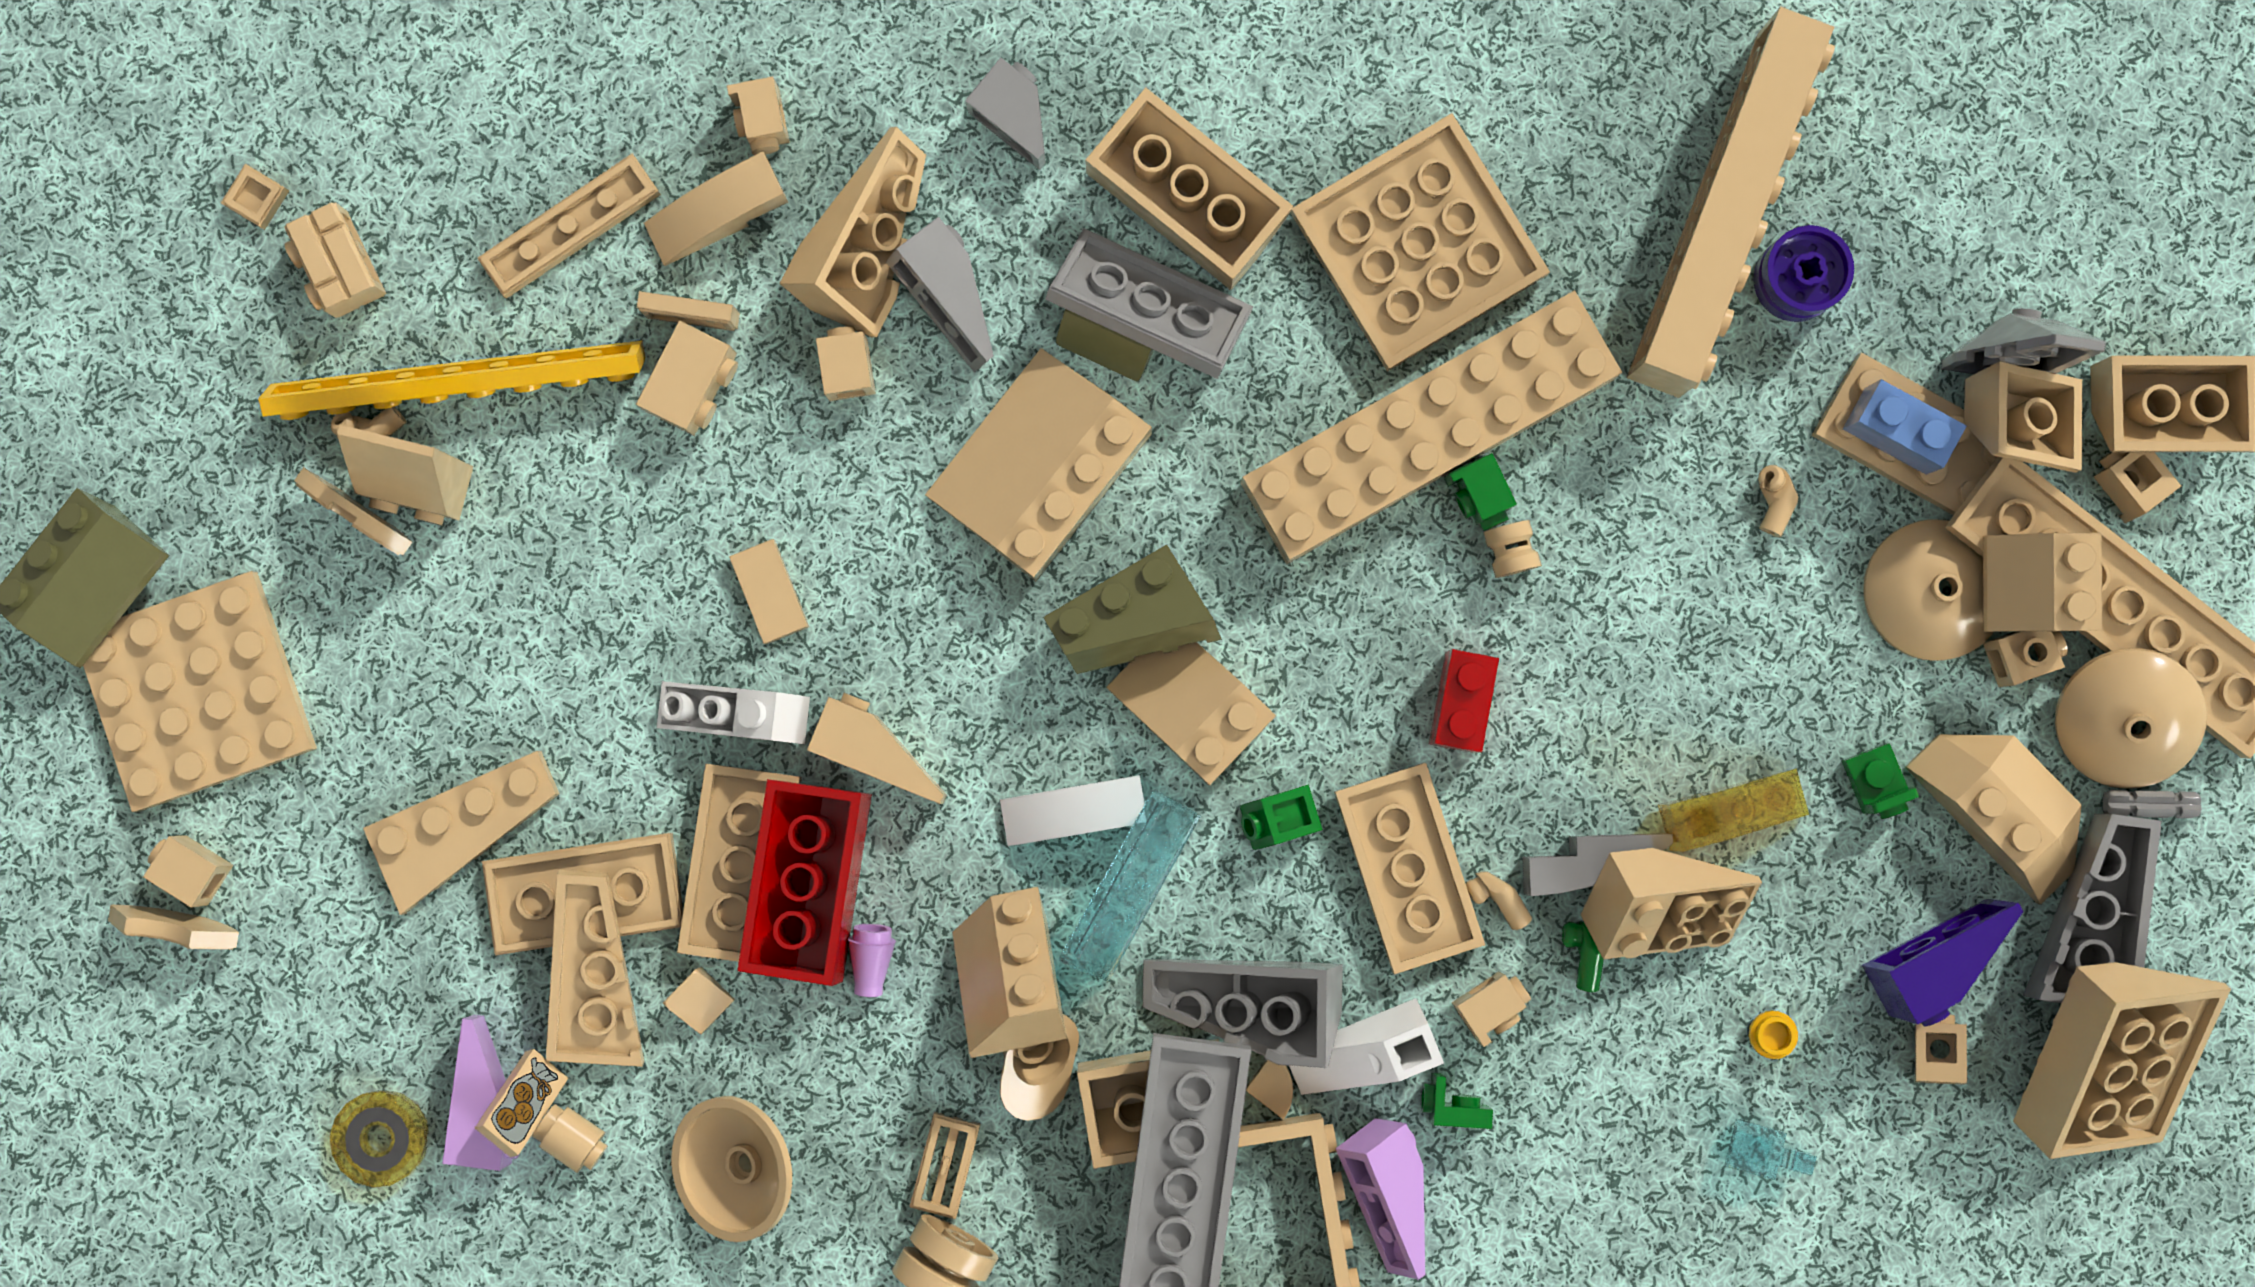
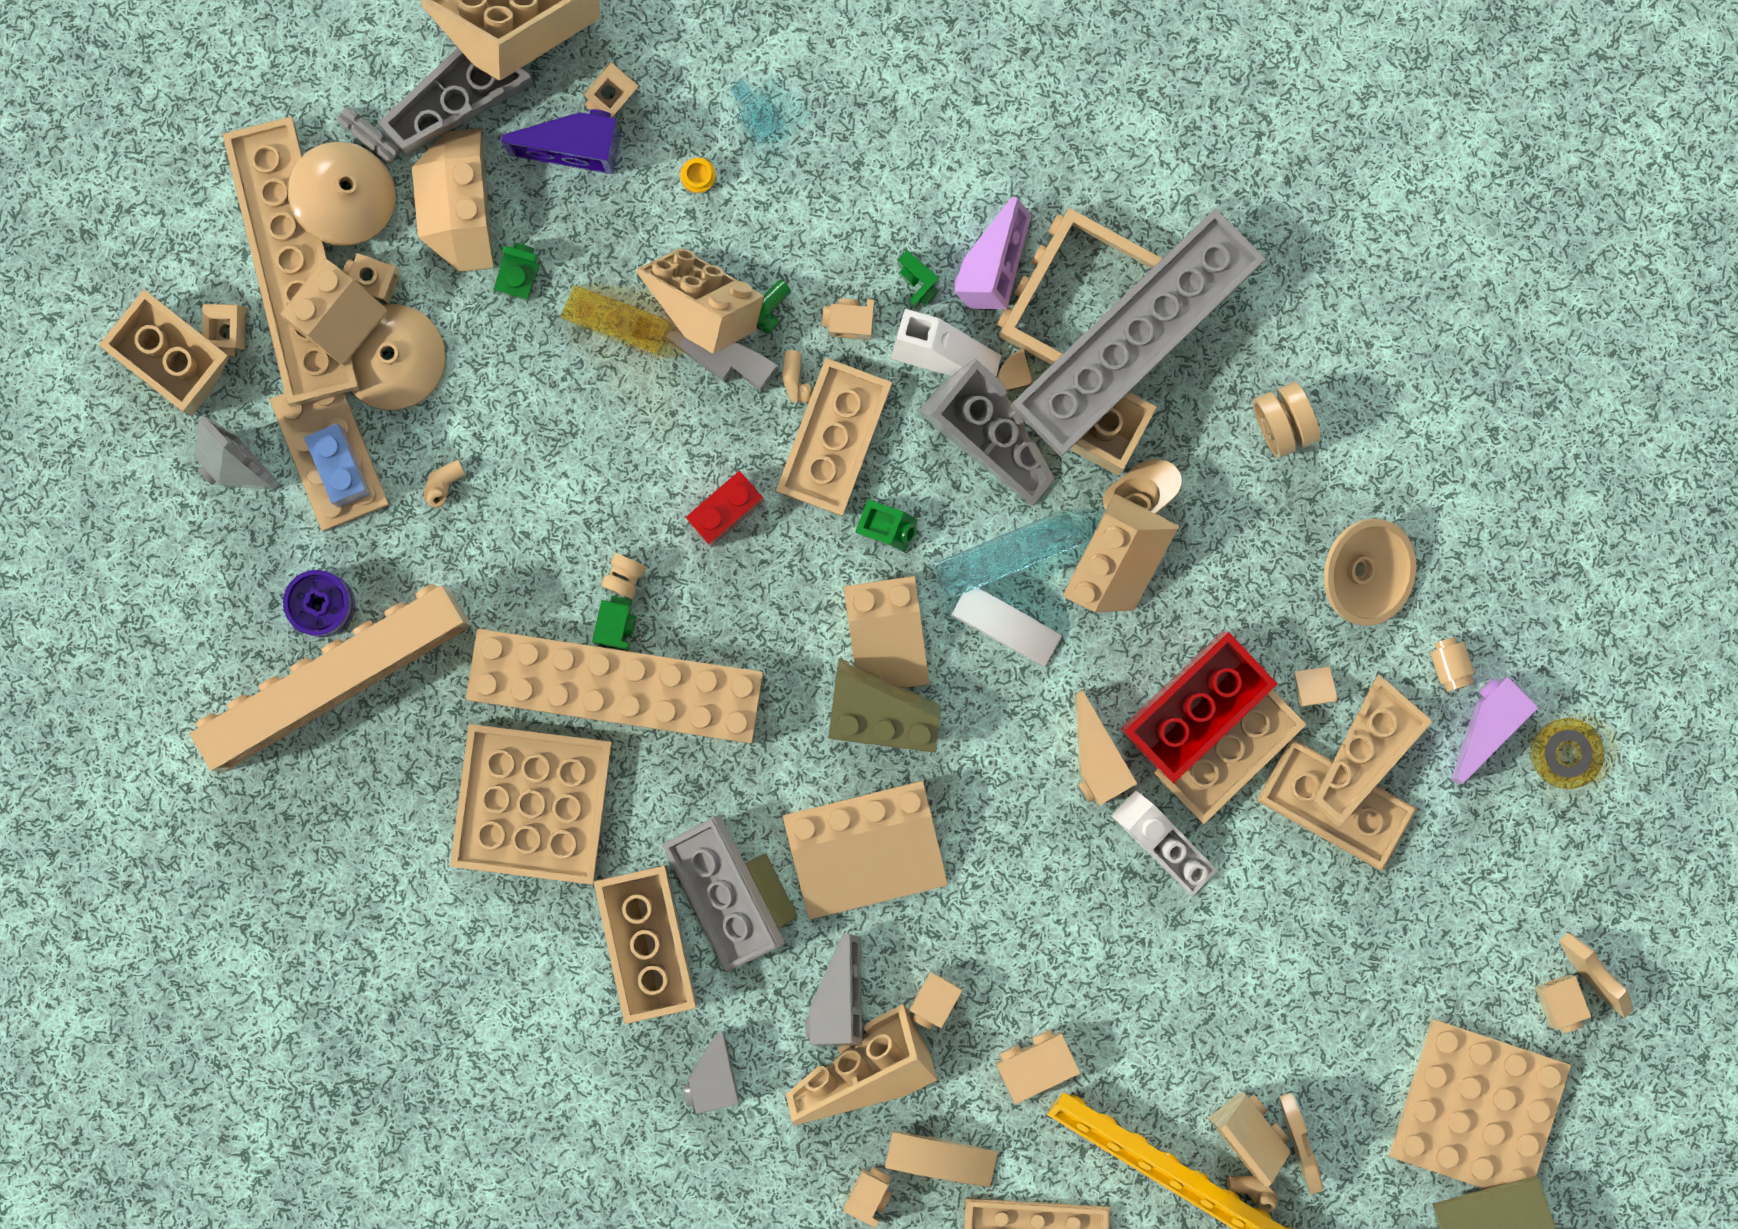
camera: 150 degrees left, 0 degrees up
(443, 834) = (1391, 905): tan wing -> none
(521, 1103) = (1464, 706): tile -> none
(688, 311) = (1005, 1108): tan tile -> none
(769, 591) = (1086, 899): tan tile -> none
(870, 957) = (1192, 634): lavender cone -> none
(955, 1125) = (1219, 495): tan tile -> none
(2026, 415) = (261, 415): tan slope -> none

